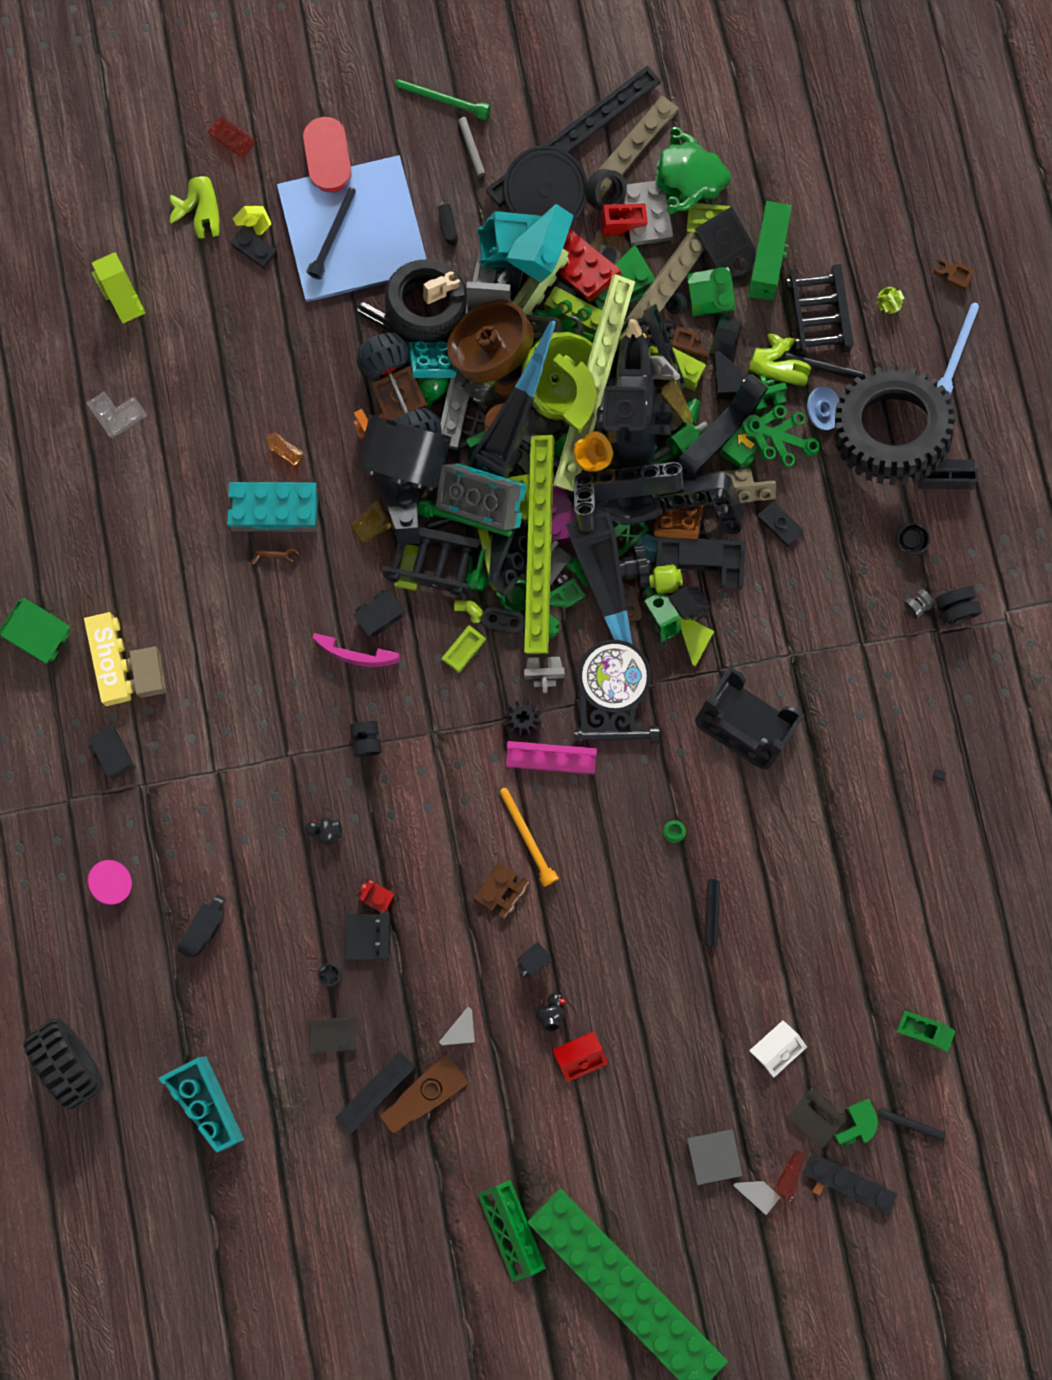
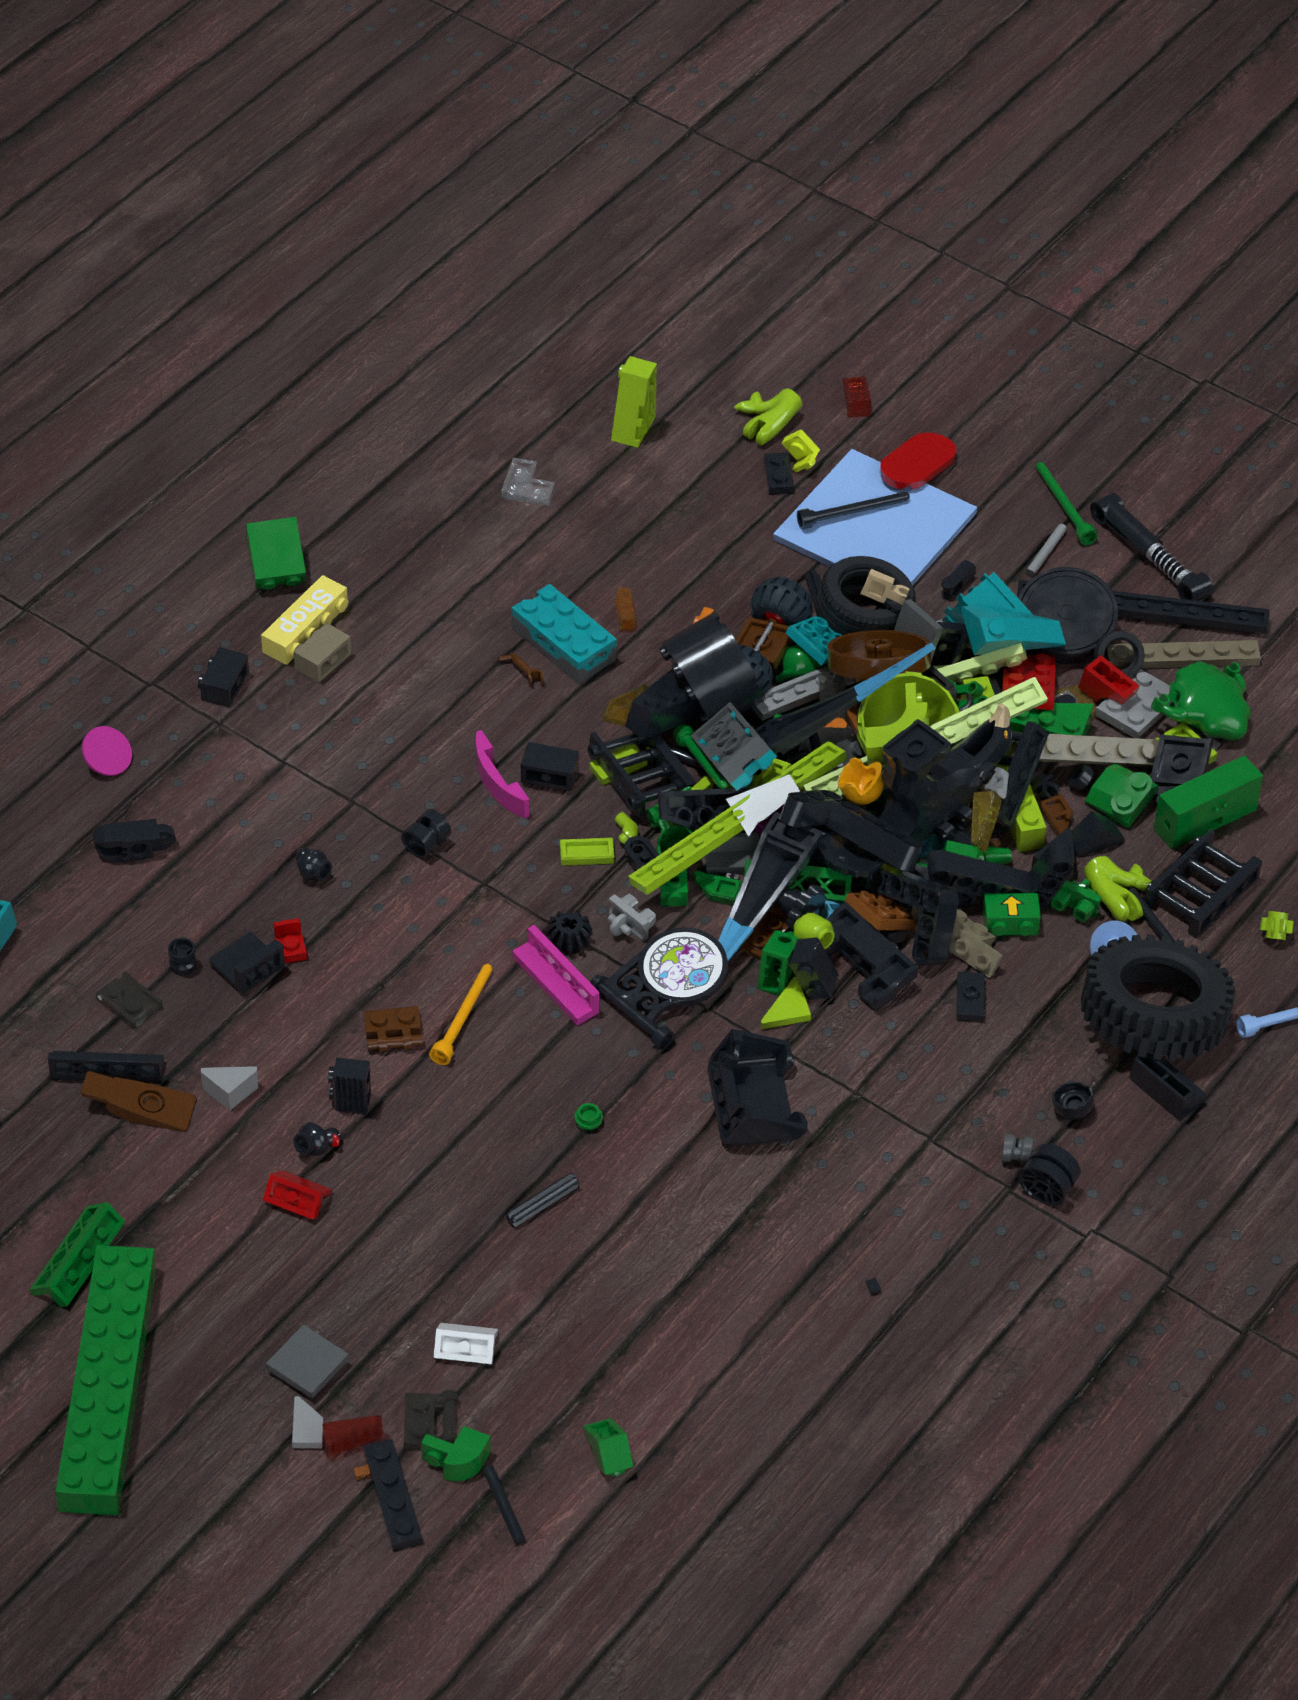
camera: 45 degrees right, 30 degrees down
(480, 80) = (1111, 511): none -> black piece
(546, 519) = (763, 801): none -> white sticker
(778, 435) = (1048, 925): green plant -> none

